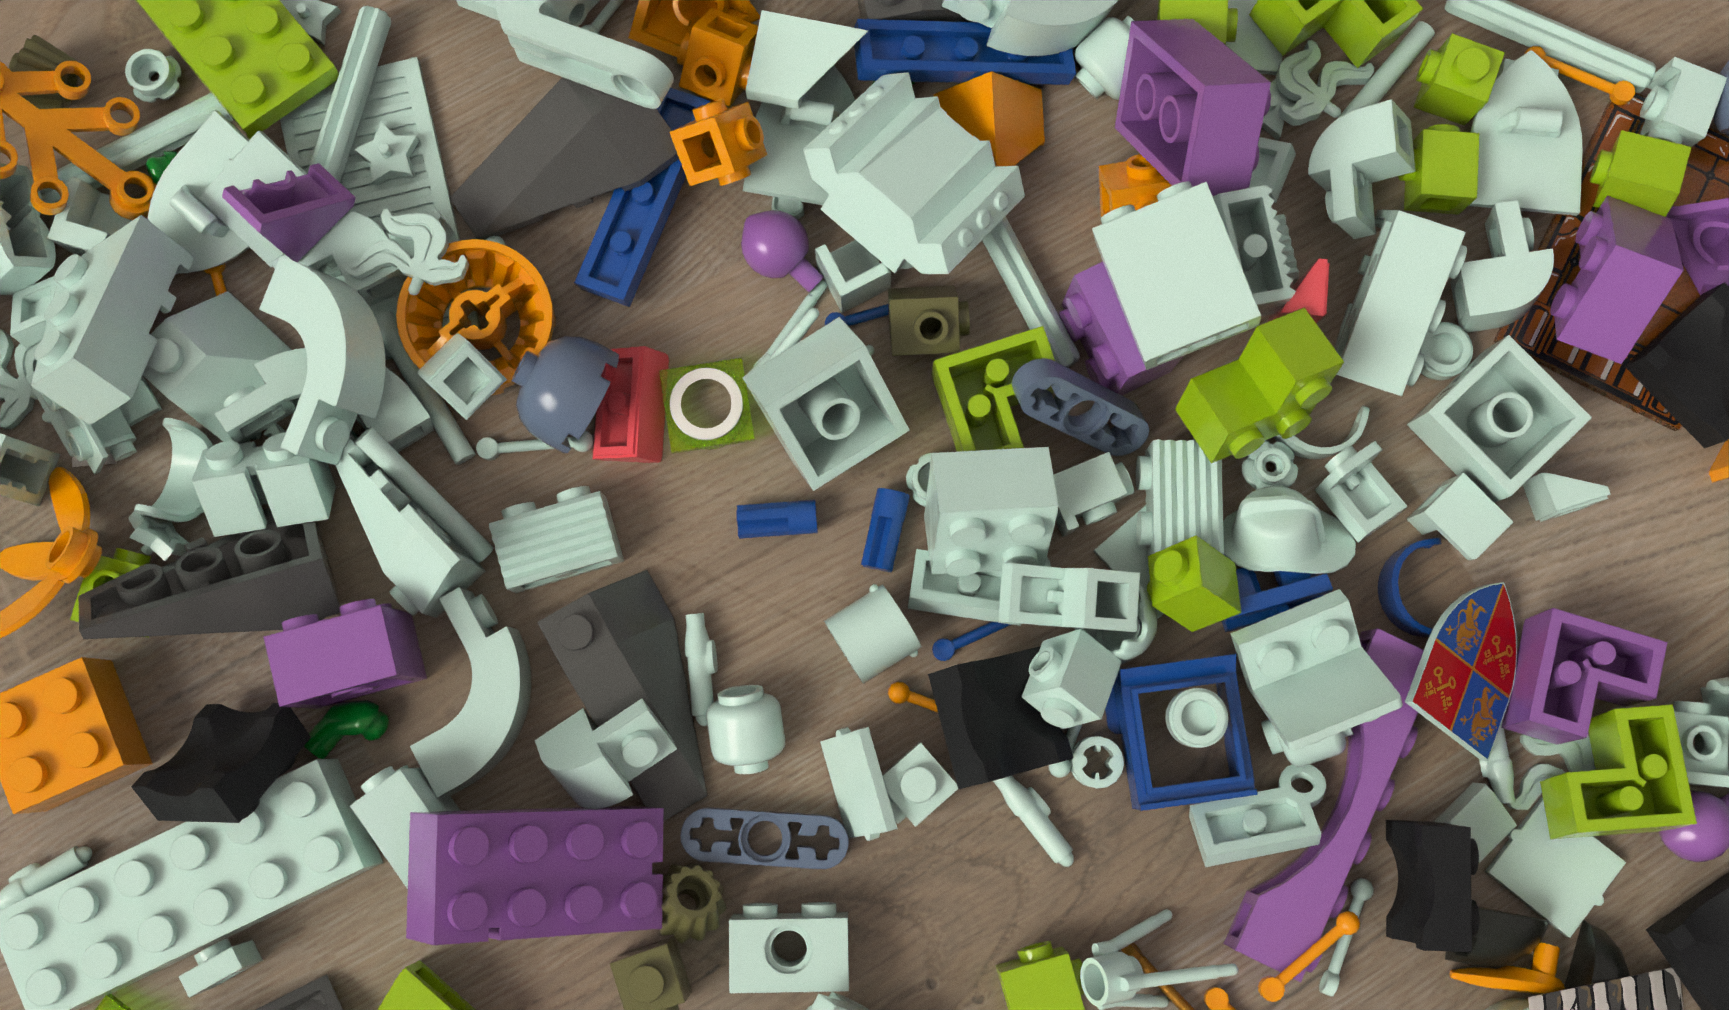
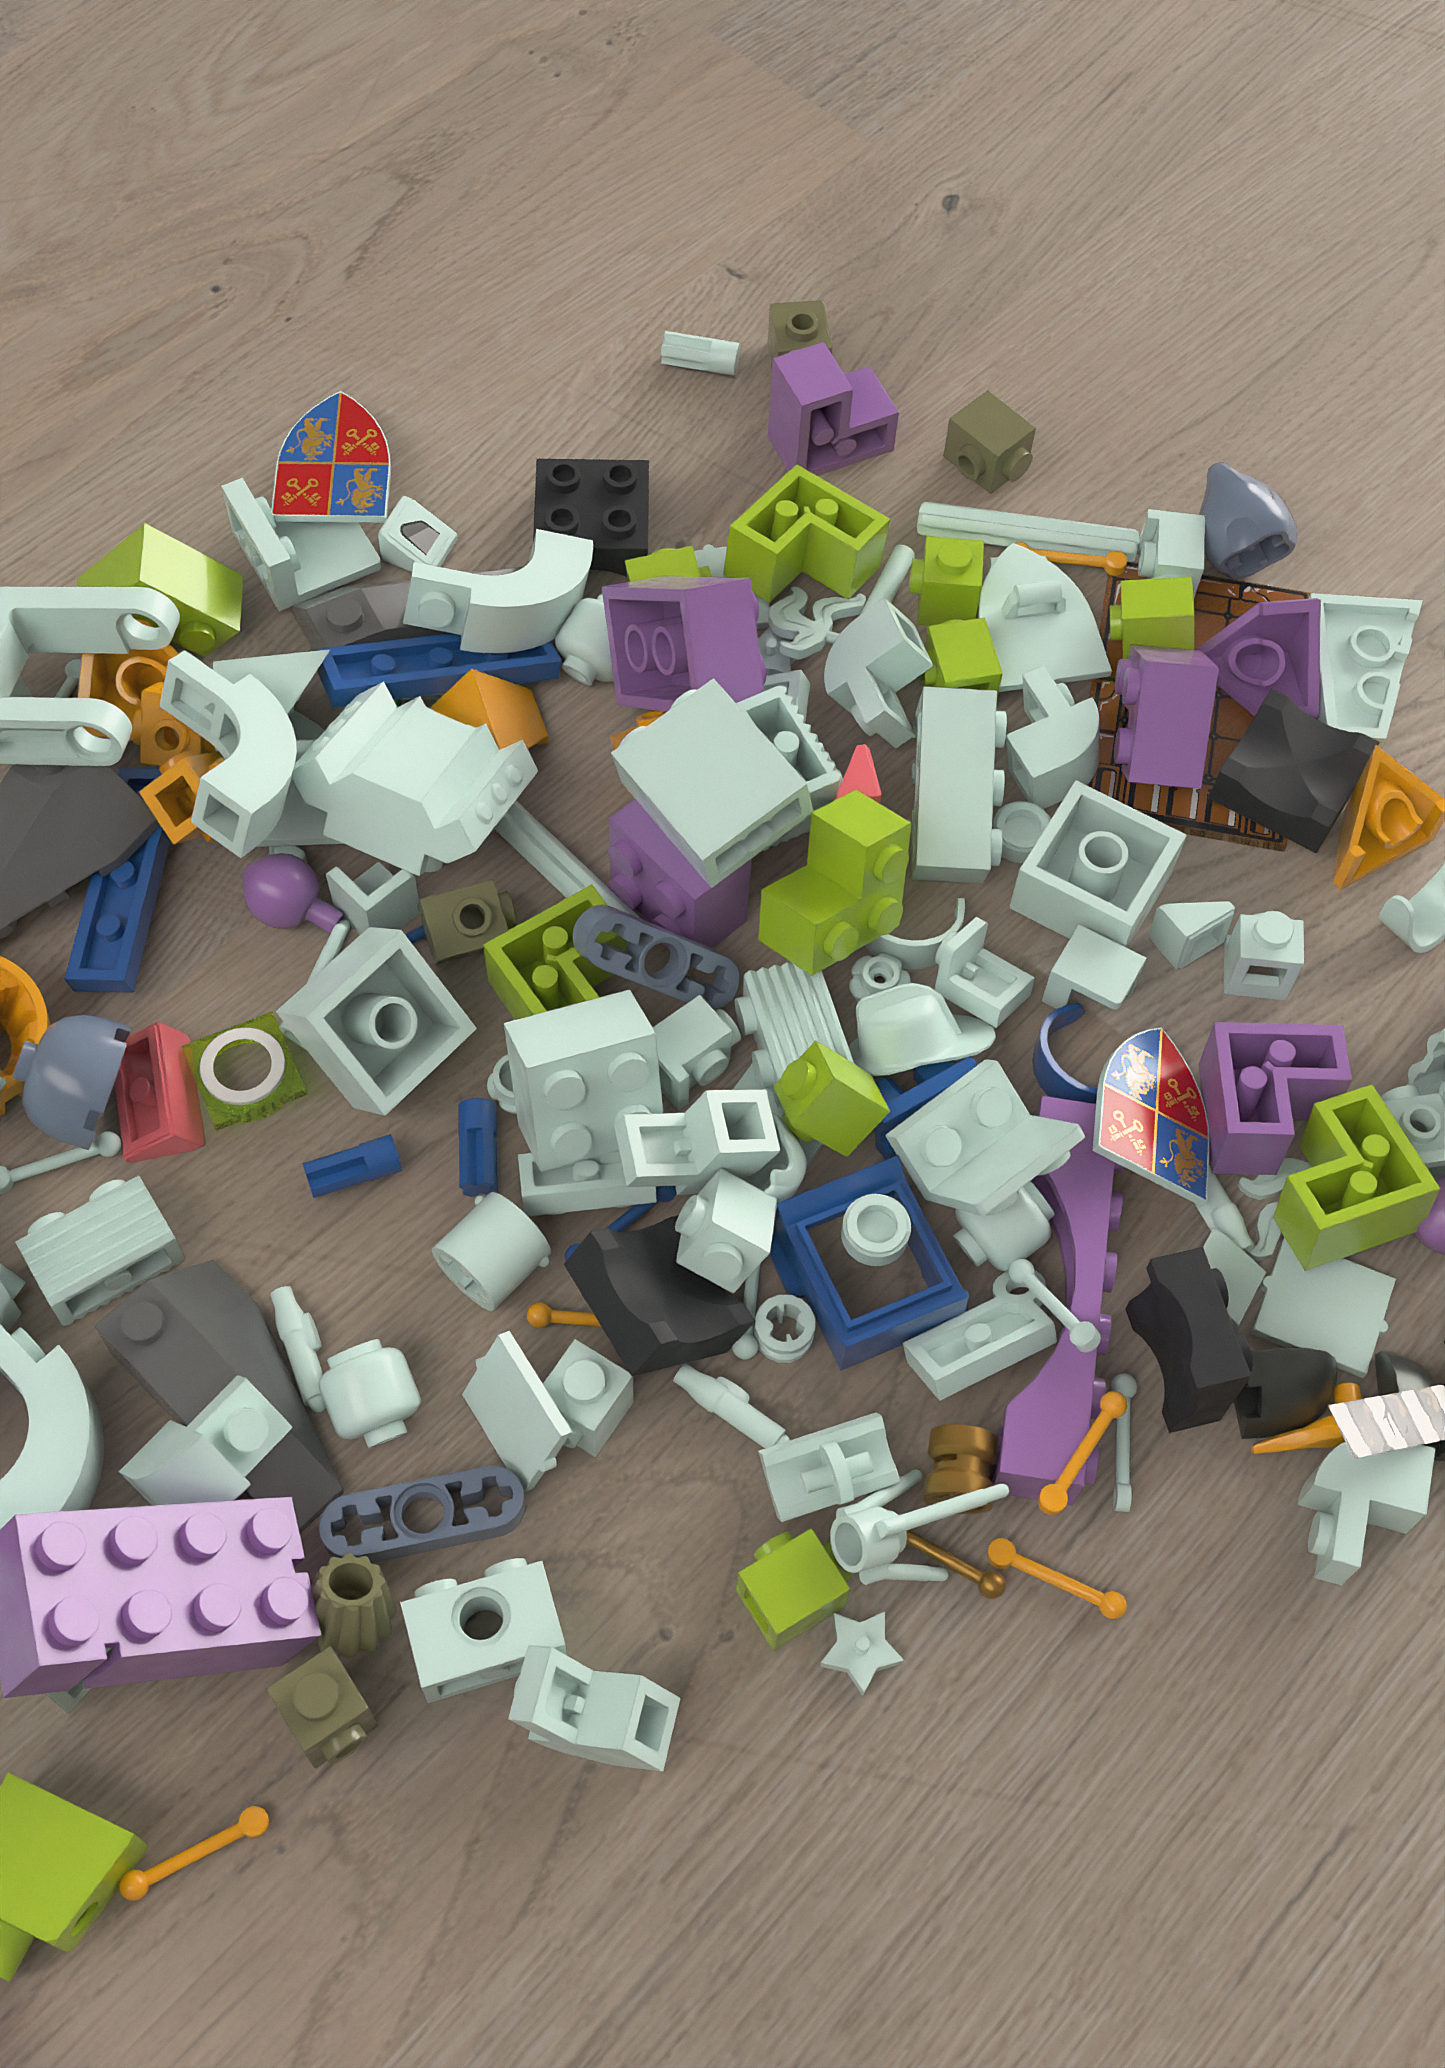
camera: 20 degrees left, 20 degrees down
(781, 114) = (246, 792): none -> light aqua arch
(1097, 900) = (829, 1467): none -> light aqua hips
(1204, 928) = (960, 1463): none -> pearl gold wheel
(1341, 861) = (1082, 1334): none -> light aqua hinge
(1619, 539) = (1264, 941): none -> light aqua brick

